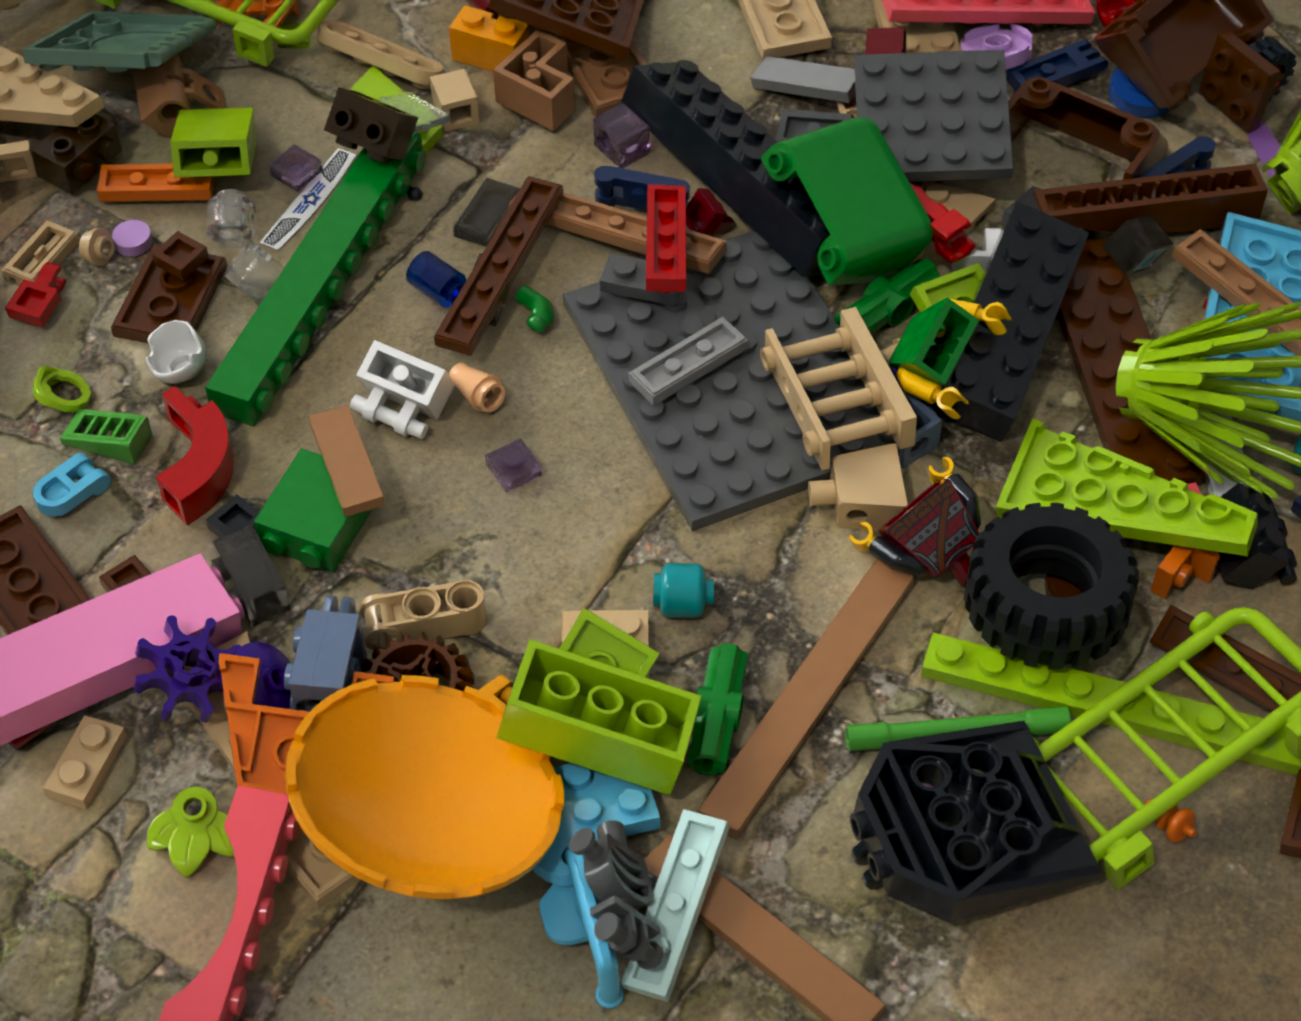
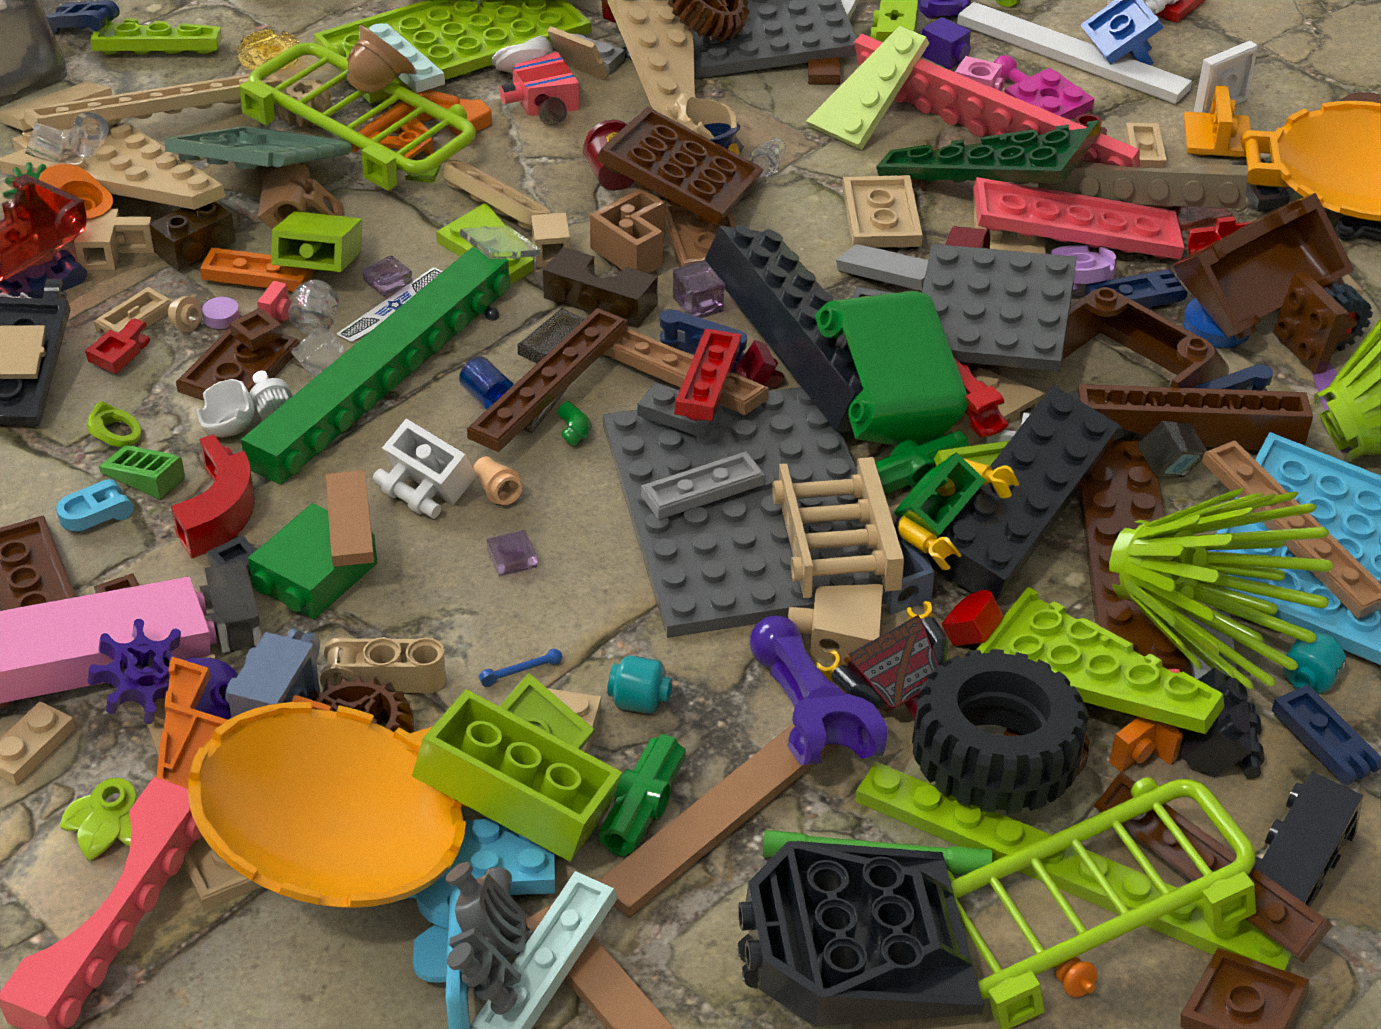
camera: 10 degrees right, 10 degrees down
(189, 219) = (275, 301): none -> coral plate
(217, 330) = (268, 394): none -> white piece
(370, 124) = (459, 241): dark brown brick -> none
(482, 40) = (590, 189): light orange piece -> none
(530, 606) = (489, 676): none -> blue hinge
(547, 156) = (572, 282): none -> dark brown arch
(871, 588) = (820, 708): none -> dark purple piece
(989, 462) = (973, 619): none -> red piece

